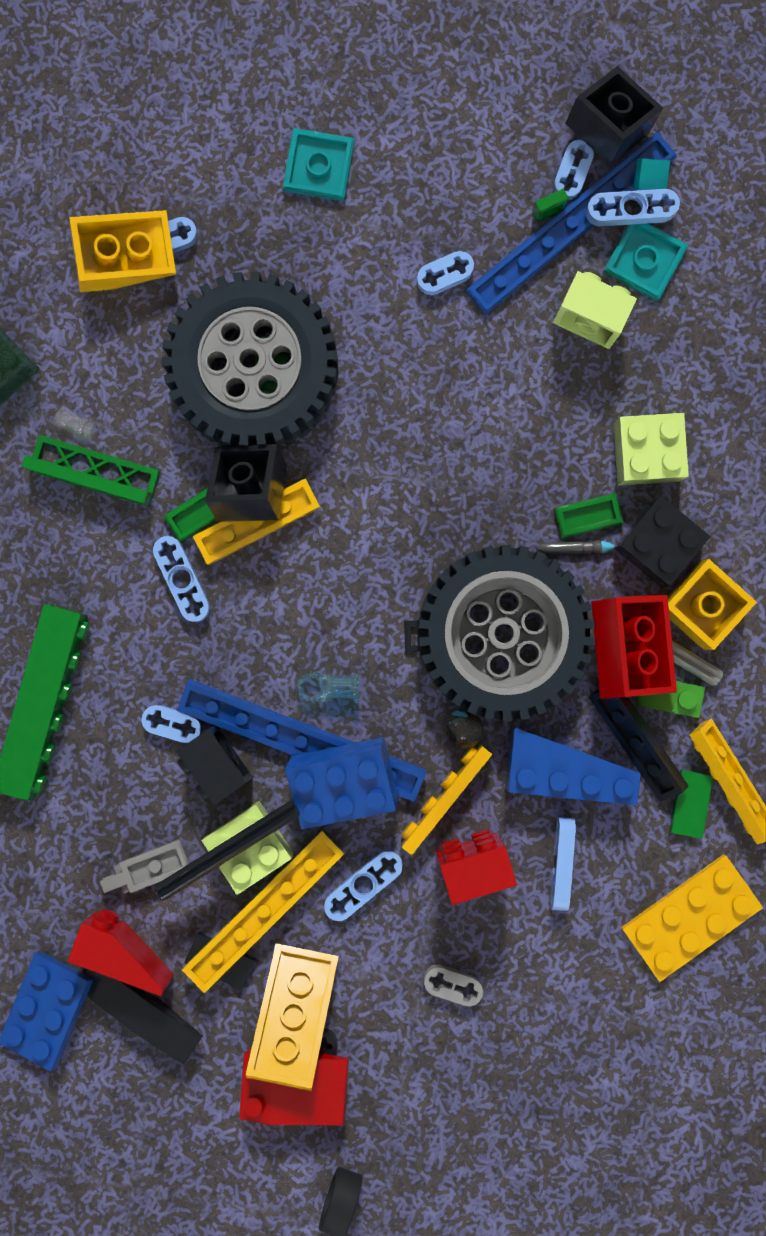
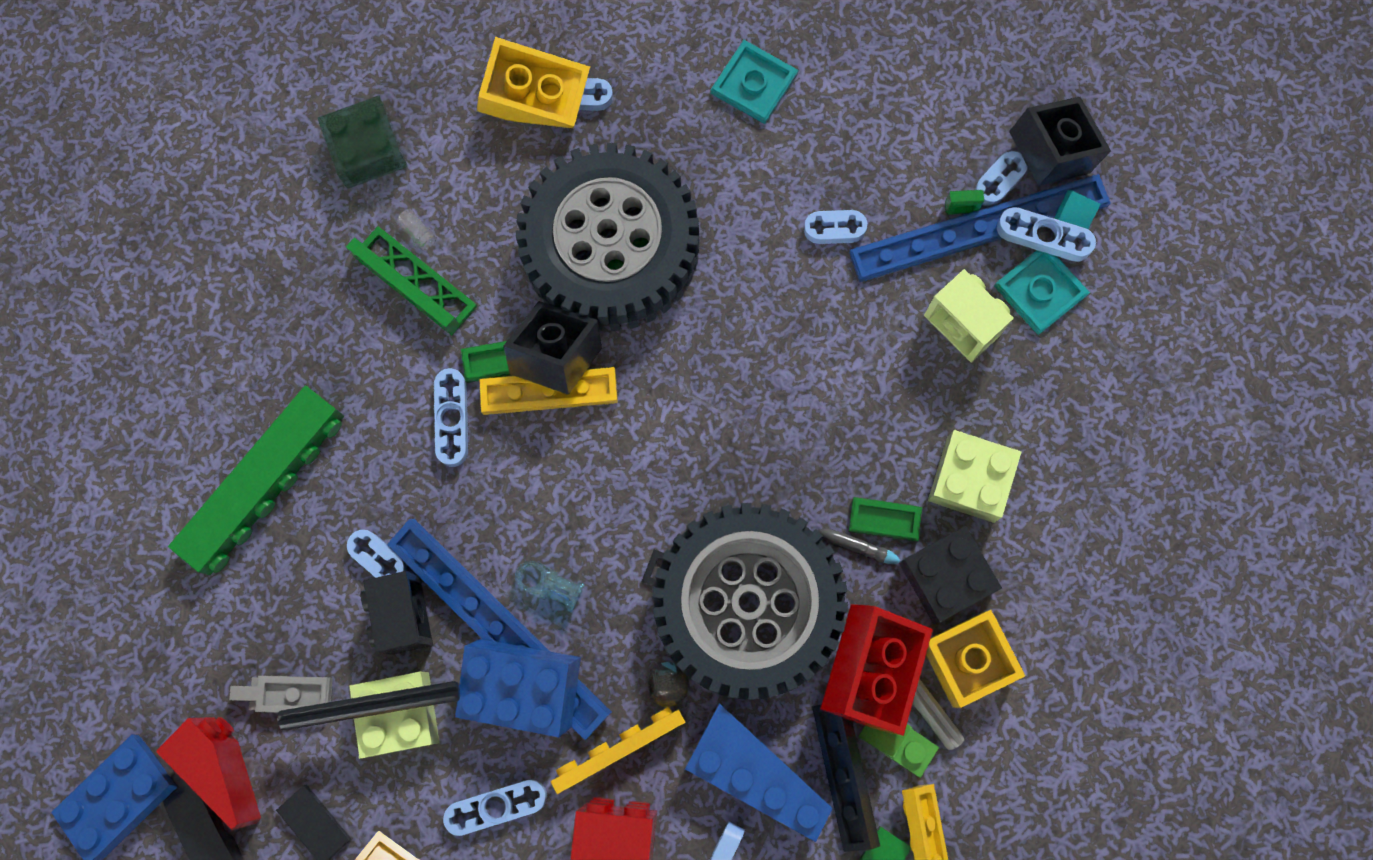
camera: 30 degrees right, 10 degrees down
(263, 911) = (378, 789): yellow plate -> none

